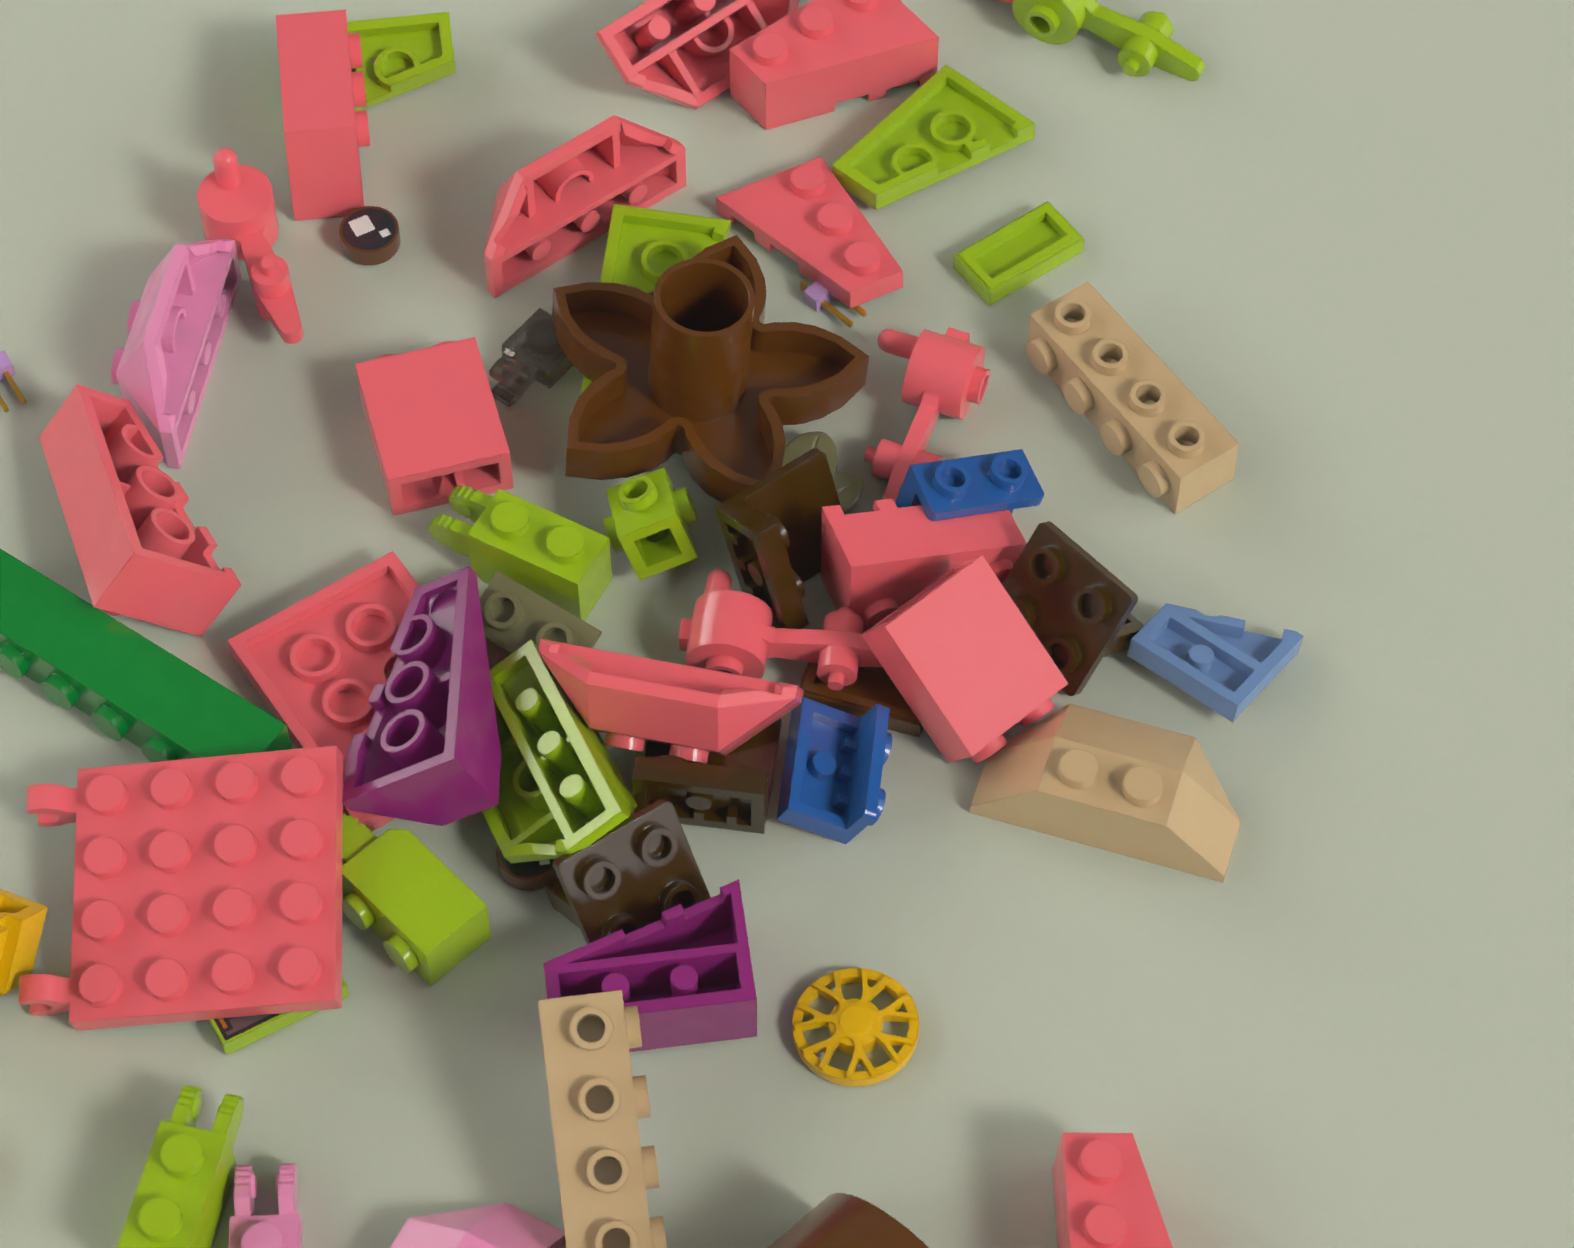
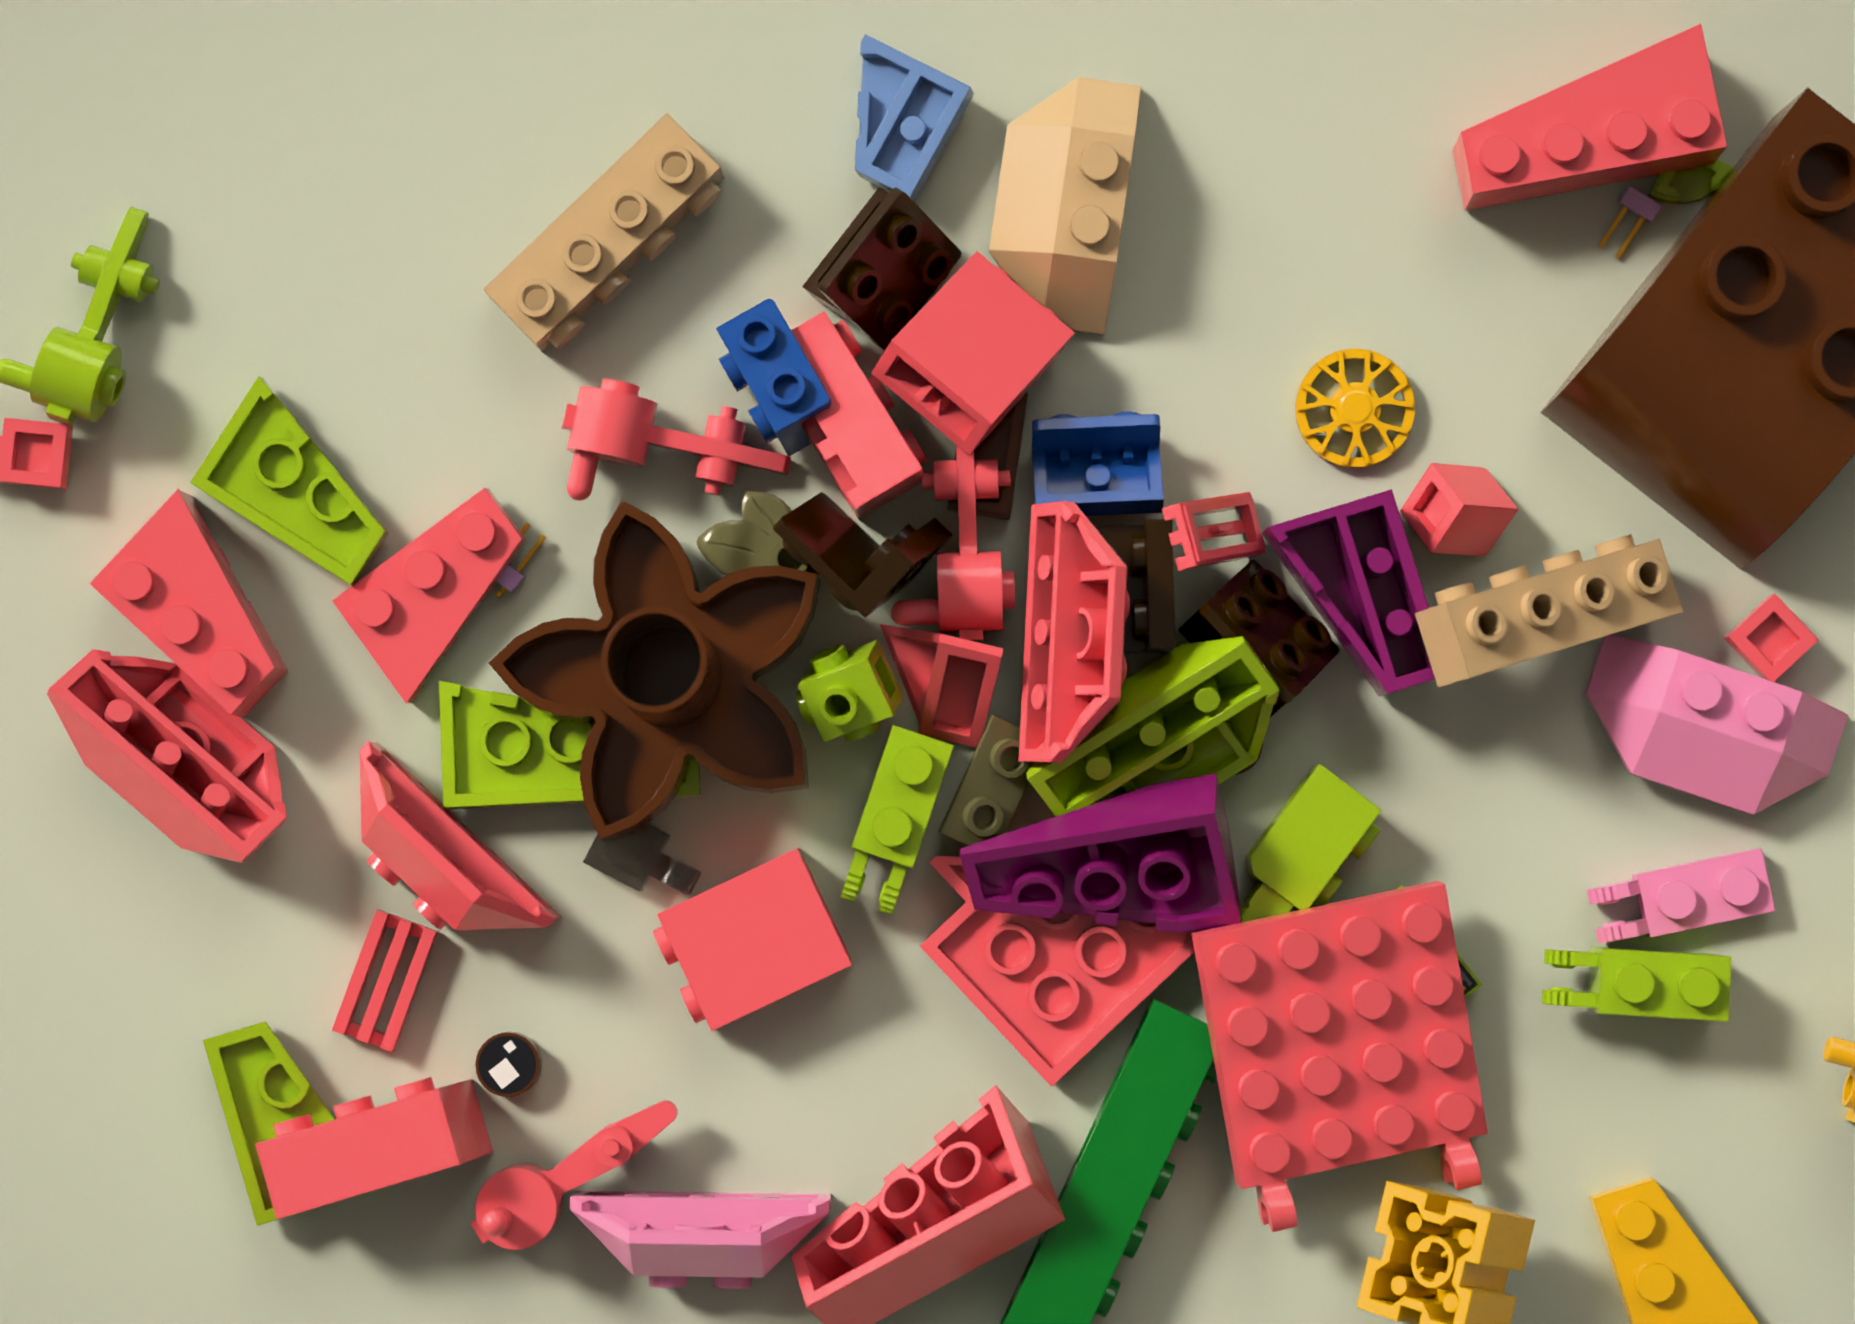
camera: 95 degrees left, 30 degrees up
(474, 150) = (366, 1031): none -> coral tile
(645, 617) = (945, 681): none -> coral slope
(727, 1098) = (1458, 510): none -> coral panel
(743, 798) = (1190, 535): none -> coral tile
(1018, 253) = (421, 375): lime tile -> none

